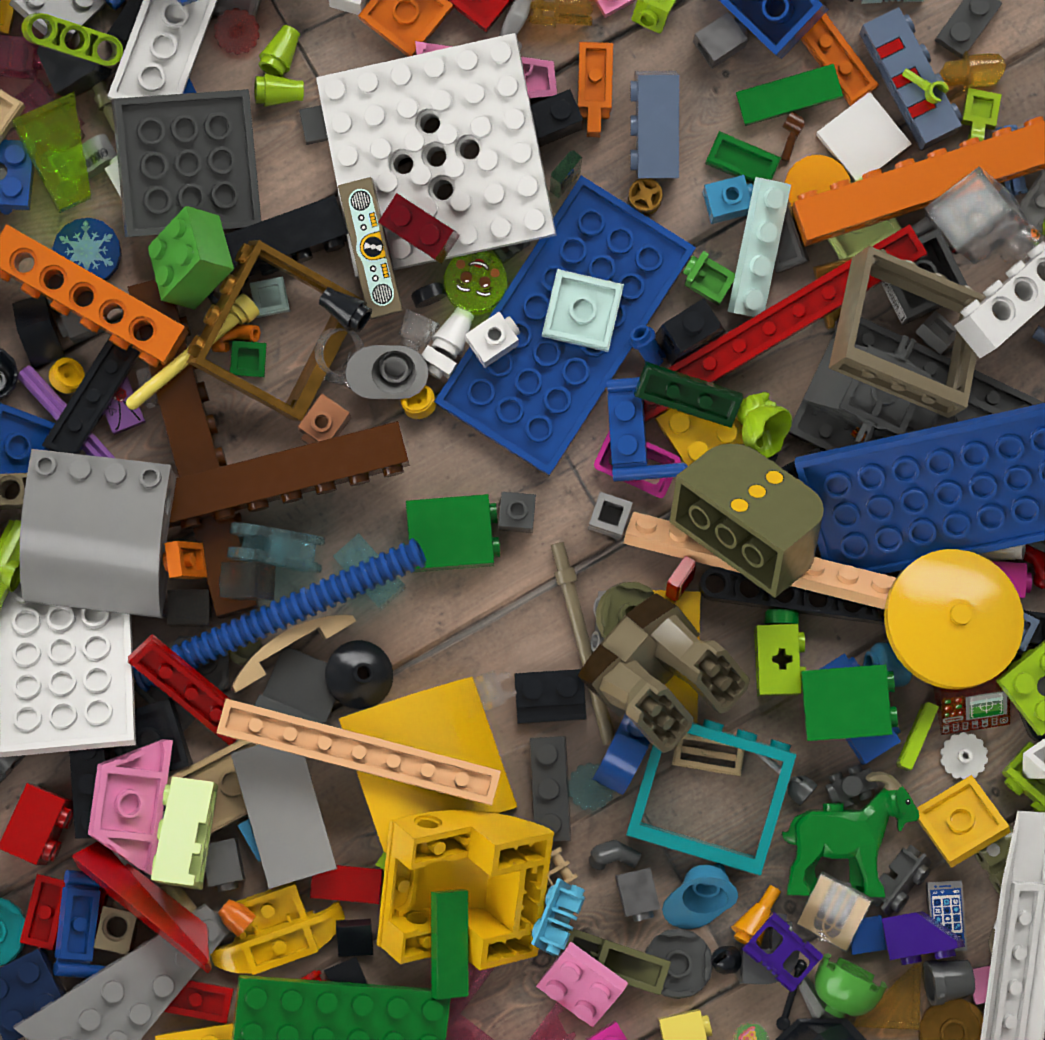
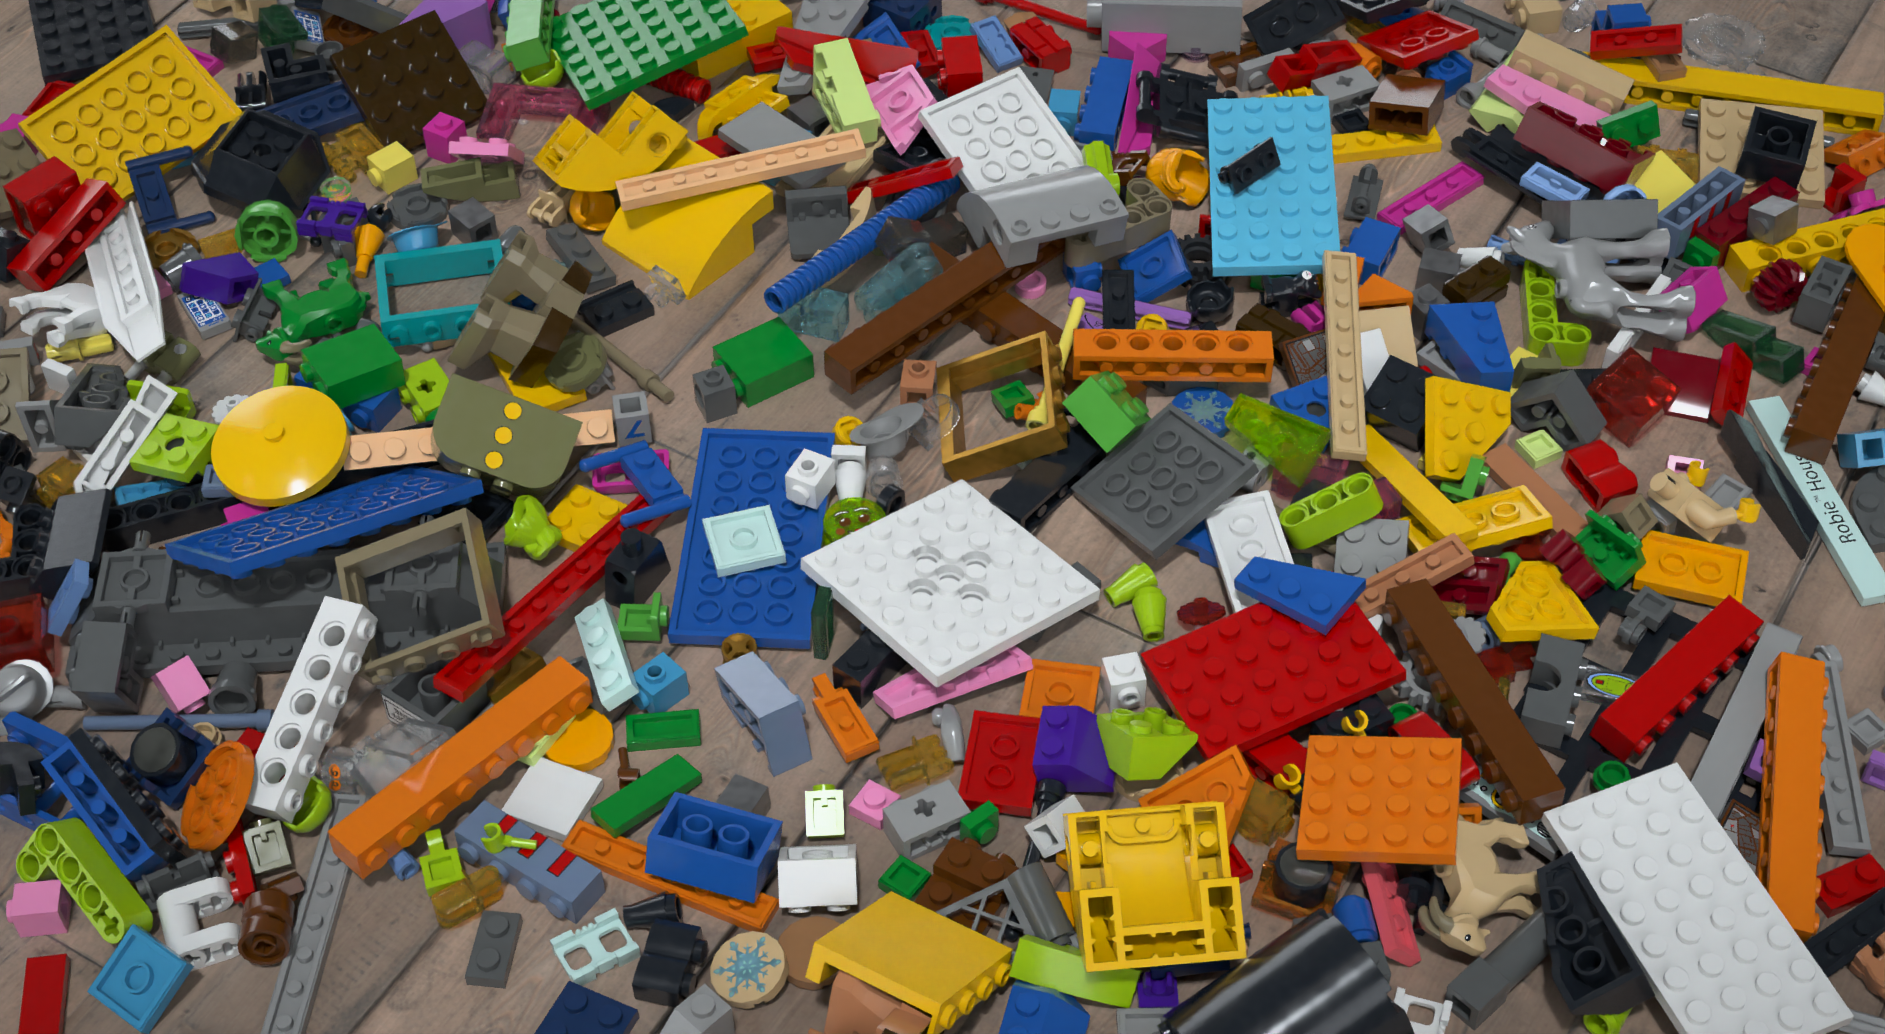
camera: 155 degrees right, 35 degrees down
(184, 560) = (960, 226): orange plate -> none
(236, 916) = (776, 87): orange hose -> none
(343, 677) = (778, 256): black dish -> none
(347, 310) = (949, 433): black cone -> none
(354, 937) = (688, 121): black tile -> none
(370, 247) = (960, 488): tile -> none
(419, 228) = (923, 501): dark red brick -> none
(449, 944) = (601, 117): green tile -> none
(550, 930) = (524, 169): medium azure hinge -> none
(644, 341) = (675, 541): blue pin -> none
(680, 579) = (546, 395): tile -> none
(688, 394) = (608, 510): dark green tile -> none
(834, 911) = (300, 270): piece -> none
(962, 821) = (216, 357): yellow plate -> none

